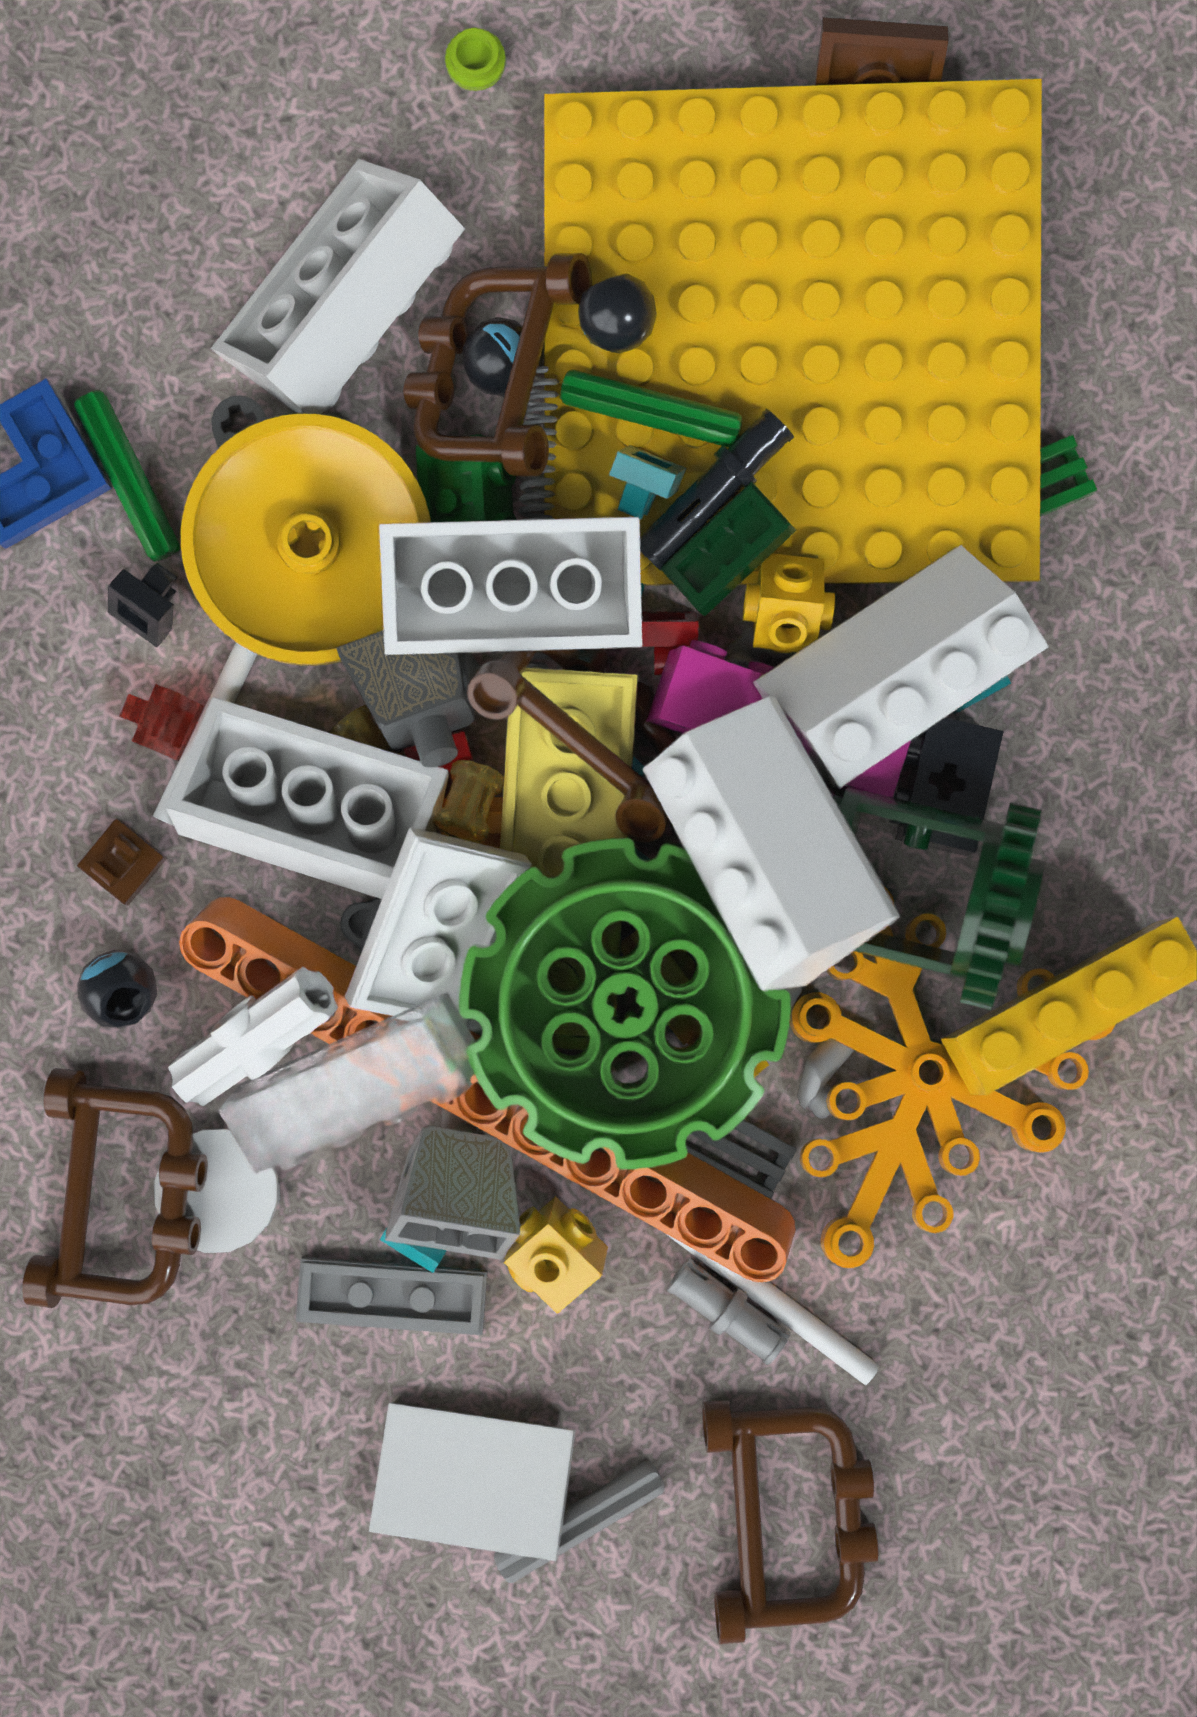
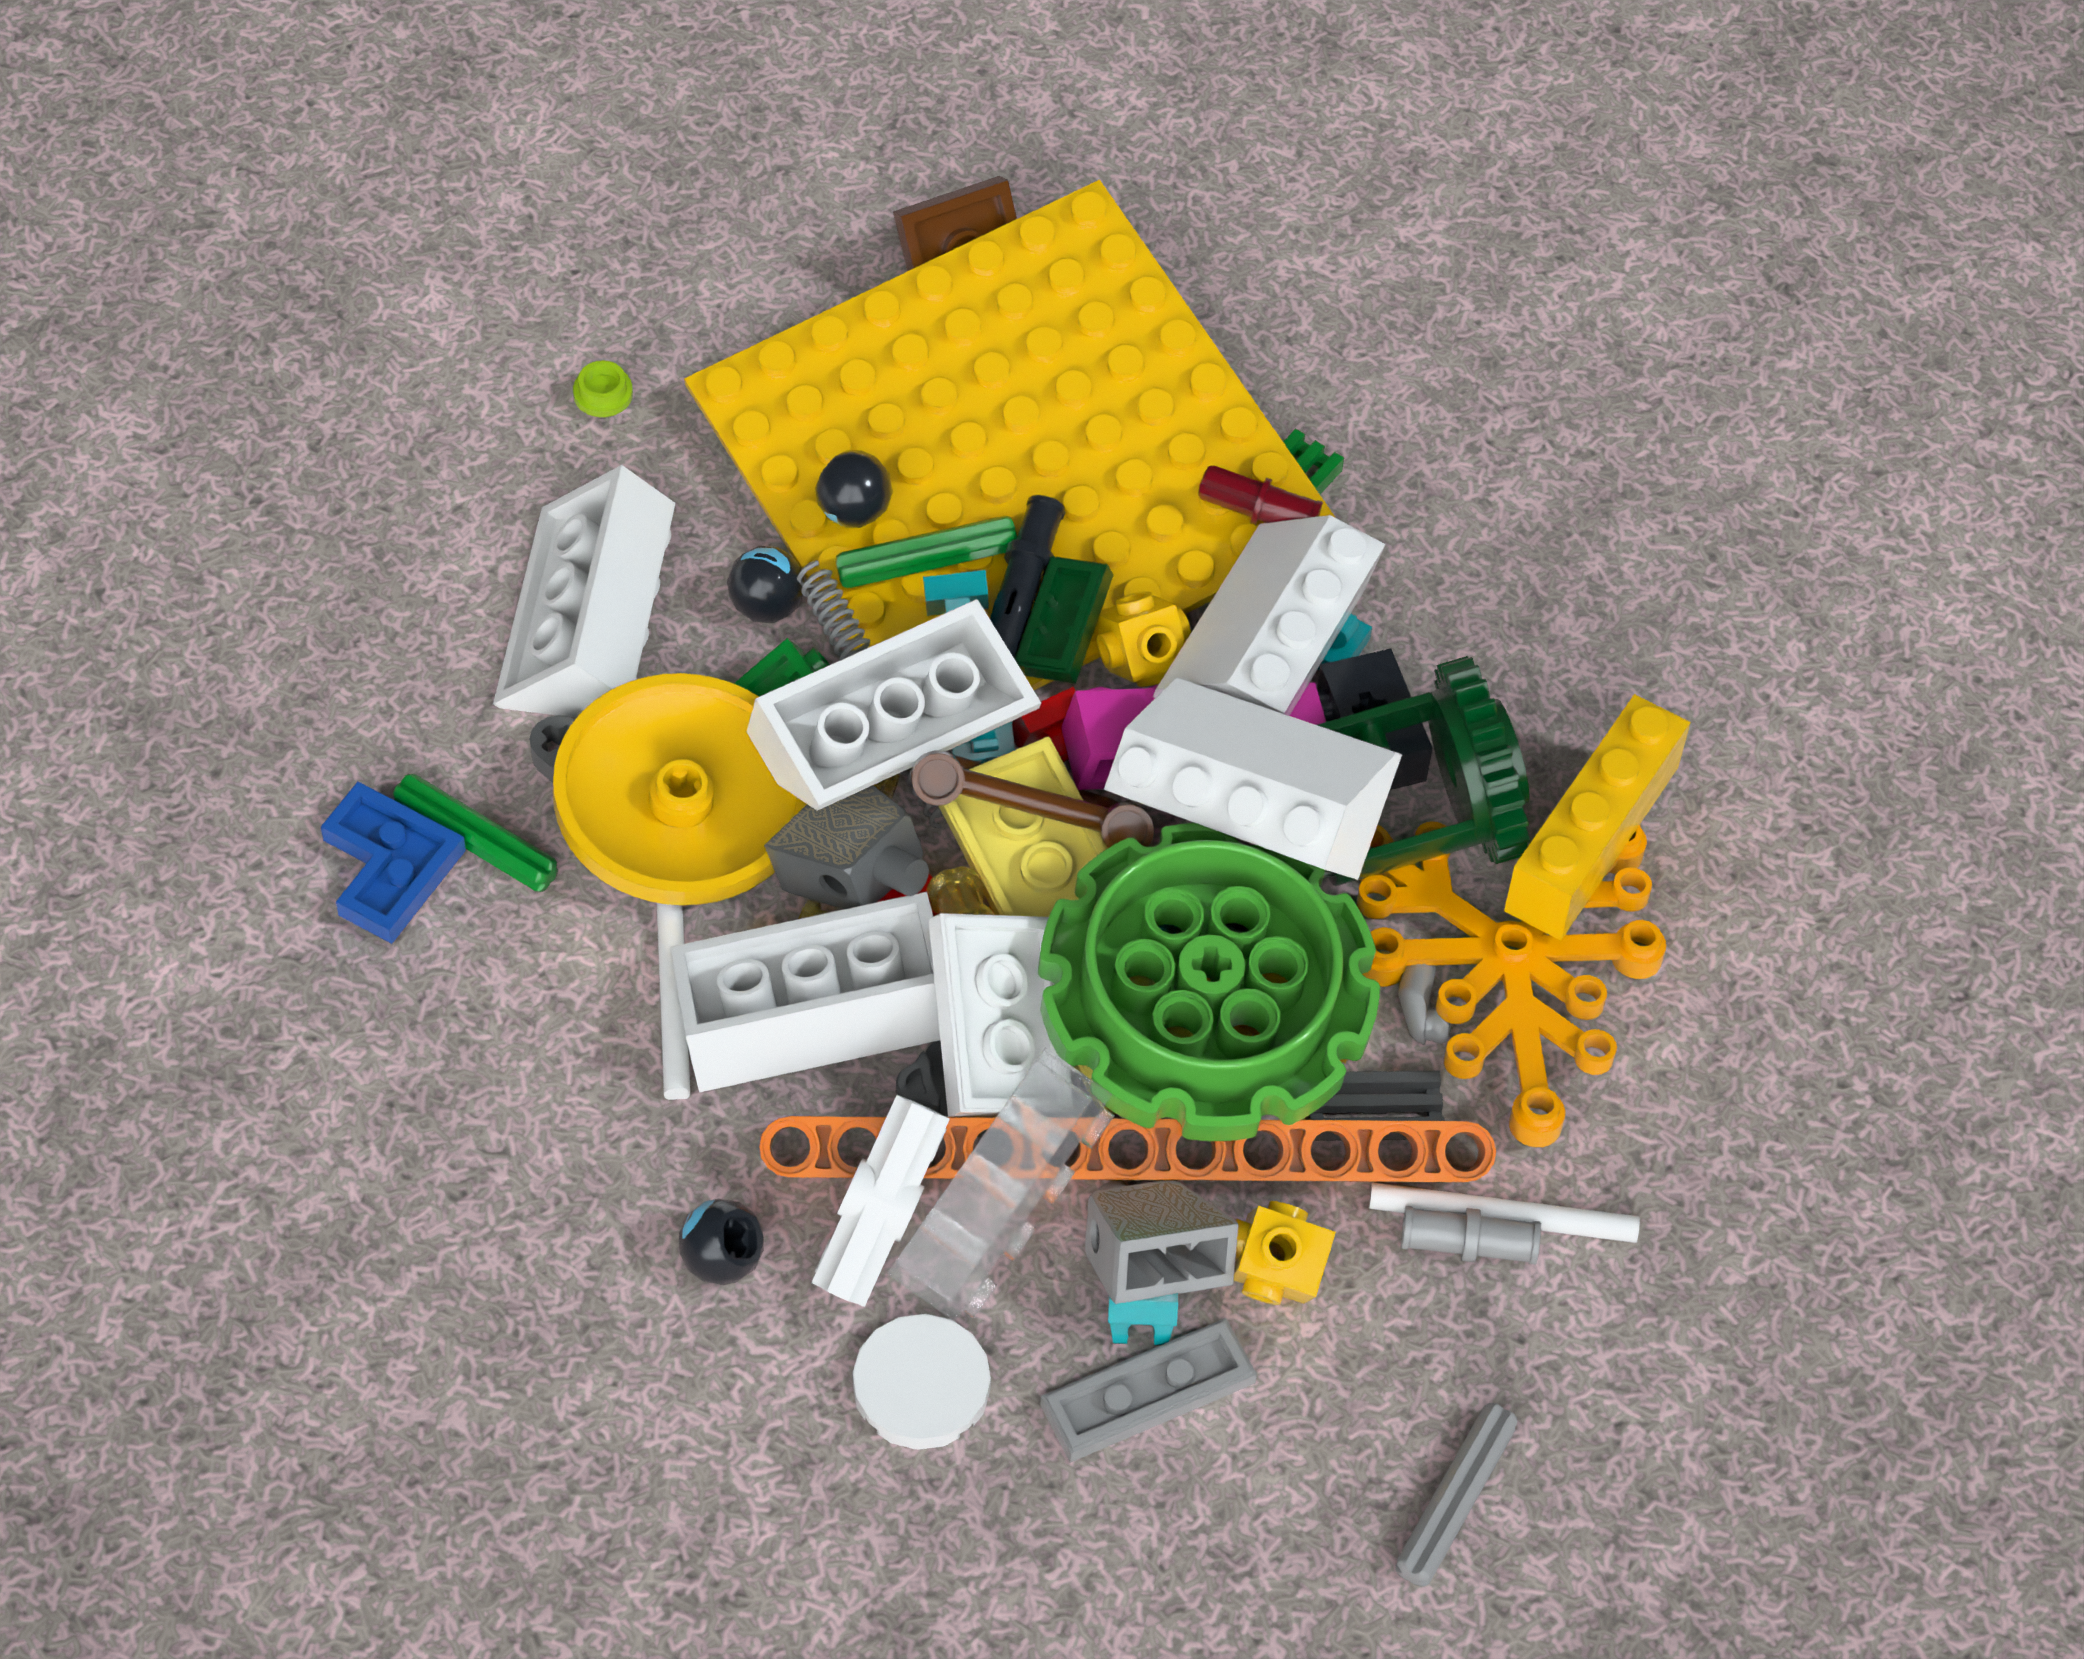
camera: 30 degrees left, 30 degrees down
(121, 862) = (657, 1145): reddish brown tile -> none
(144, 604) = (554, 919): black tile -> none
(163, 720) = (627, 1002): clear red tile -> none
(180, 1171) = (906, 1416): reddish brown bar -> none
(472, 1481) = (1332, 1500): white tile -> none
(517, 446) = (706, 595): reddish brown bar -> none
(854, 1540) = (1680, 1325): reddish brown bar -> none
(971, 524) = (1254, 498): none -> dark red axle

